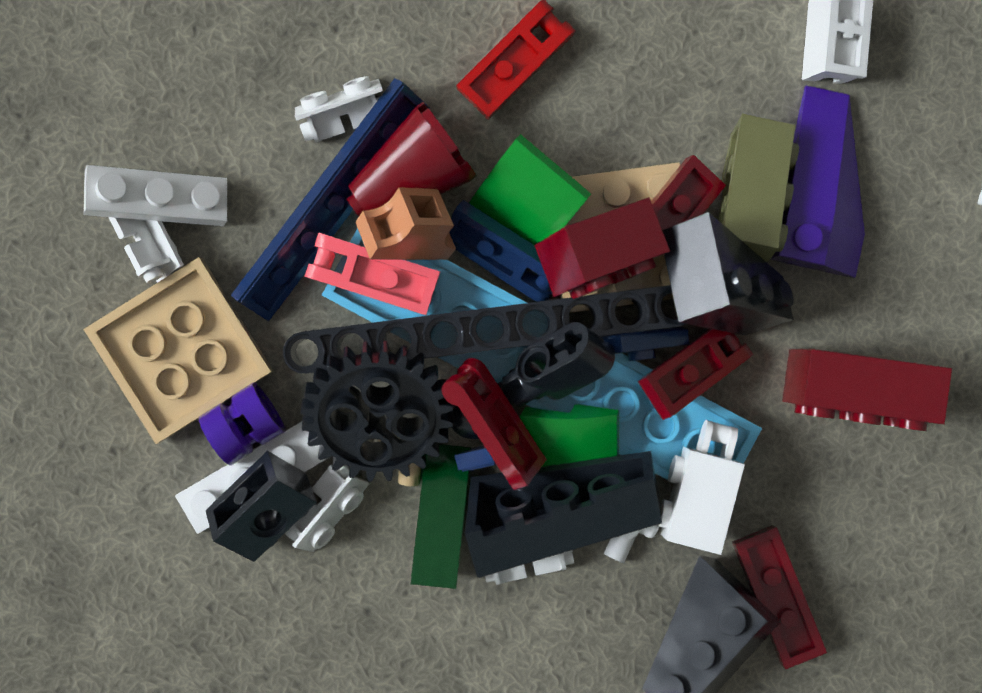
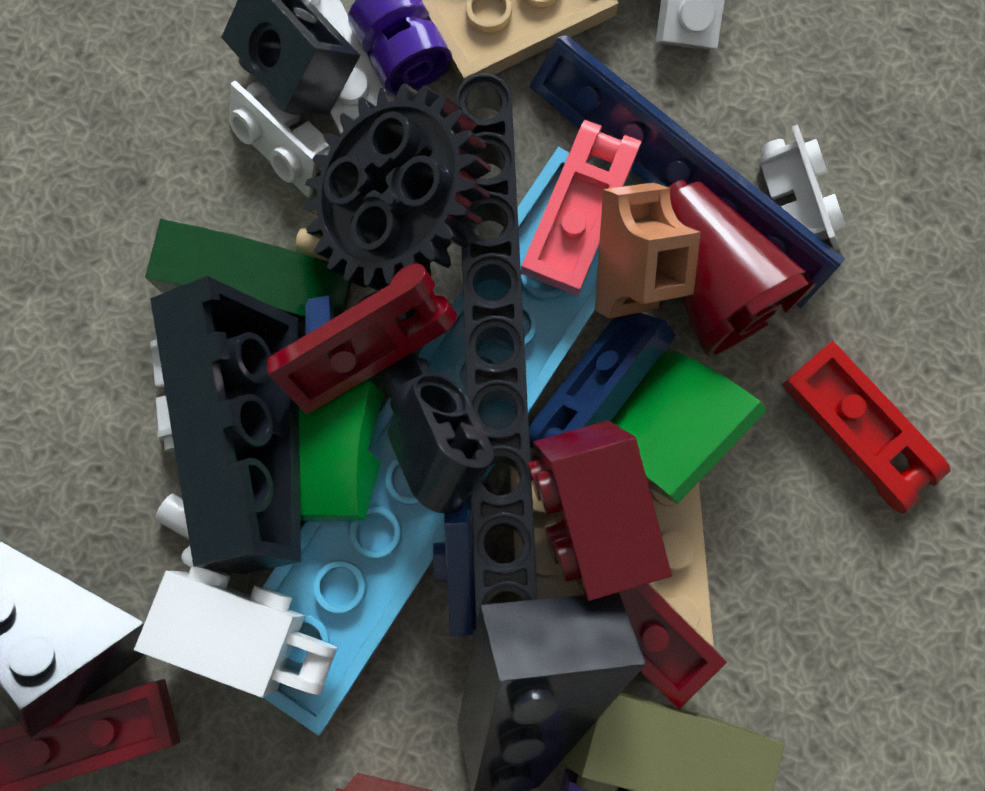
camera: 95 degrees right, 10 degrees down
(693, 371) = (410, 637): dark red plate -> none

